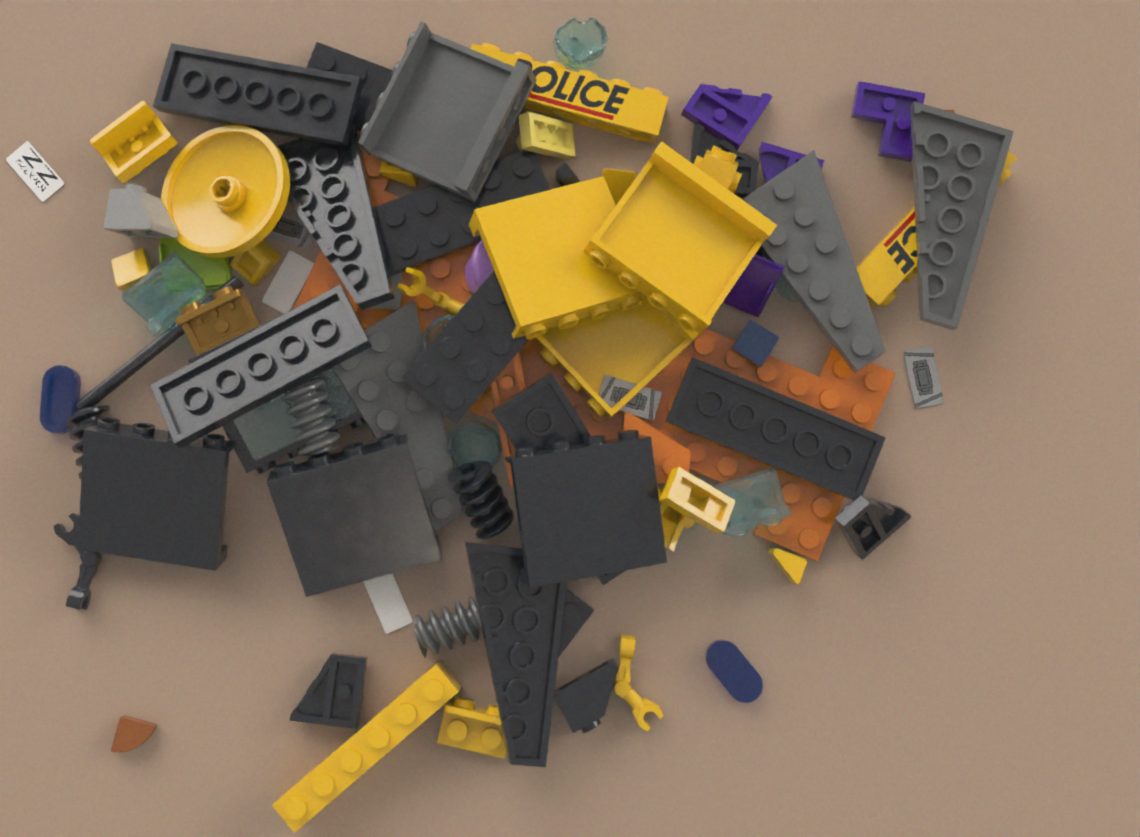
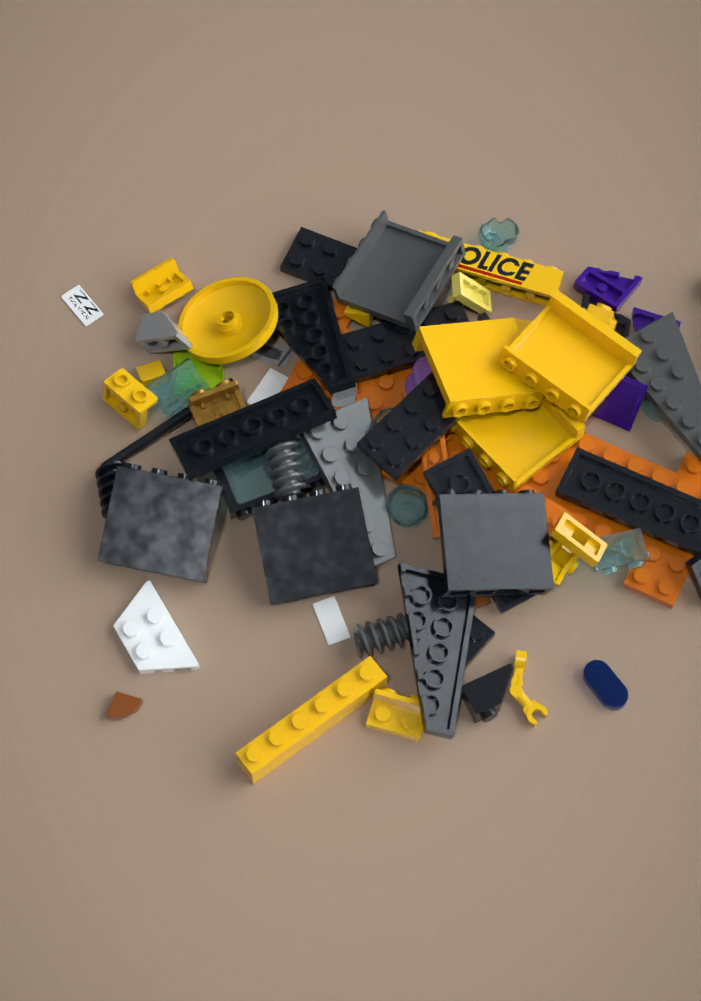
camera: 10 degrees right, 20 degrees down
(59, 397) = (87, 459): clear blue tile -> none
(80, 594) = (92, 599): black piece -> none
(102, 309) = (128, 398): none -> yellow bracket
(162, 636) = (152, 635): none -> white wing
(256, 262) = (245, 372): yellow slope -> none
(259, 94) = (258, 257): black plate -> none
(335, 693) = (287, 682): black wing -> none
(419, 287) = (385, 400): yellow piece -> none
(483, 497) = (411, 540): black piece -> none
(642, 404) = (538, 481): sticker -> none
(755, 343) = (625, 443): dark blue tile -> none
(789, 564) = (649, 603): yellow slope -> none

